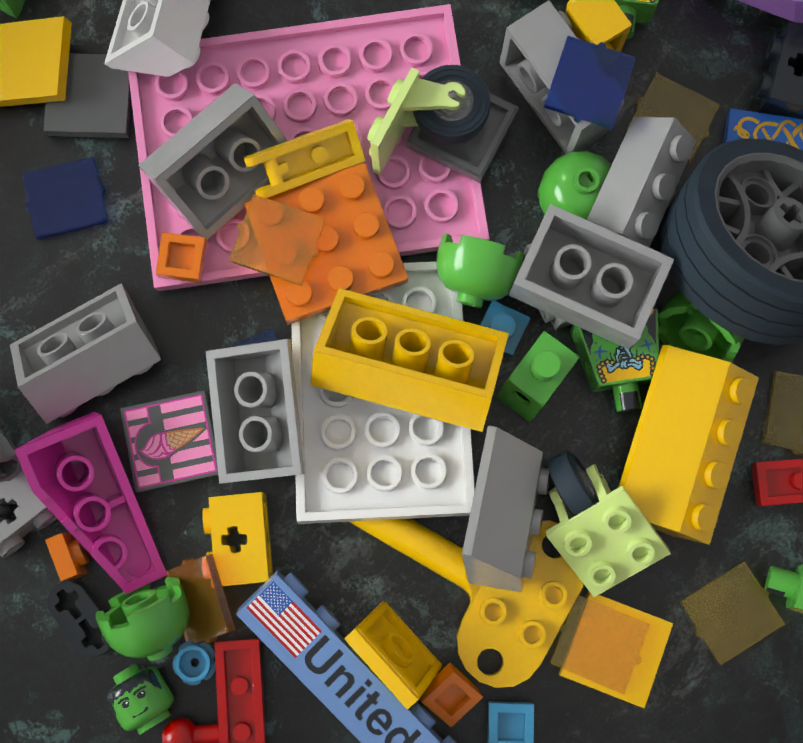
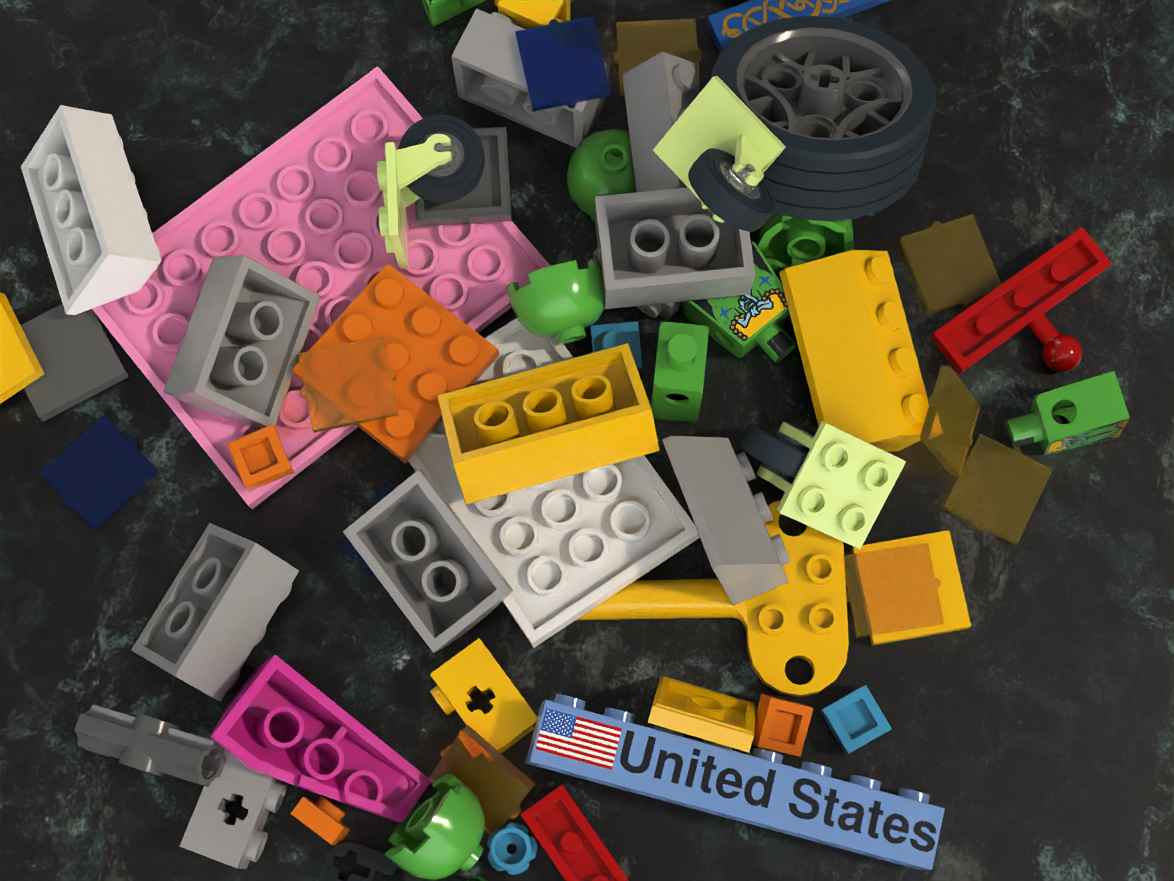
camera: 30 degrees left, 5 degrees down
(170, 441) = (356, 648): tile -> none
(308, 157) = (329, 288): yellow hinge -> none
(668, 230) = (722, 156): none -> yellowish green plate
(725, 541) = (950, 421): none -> clear yellow piece

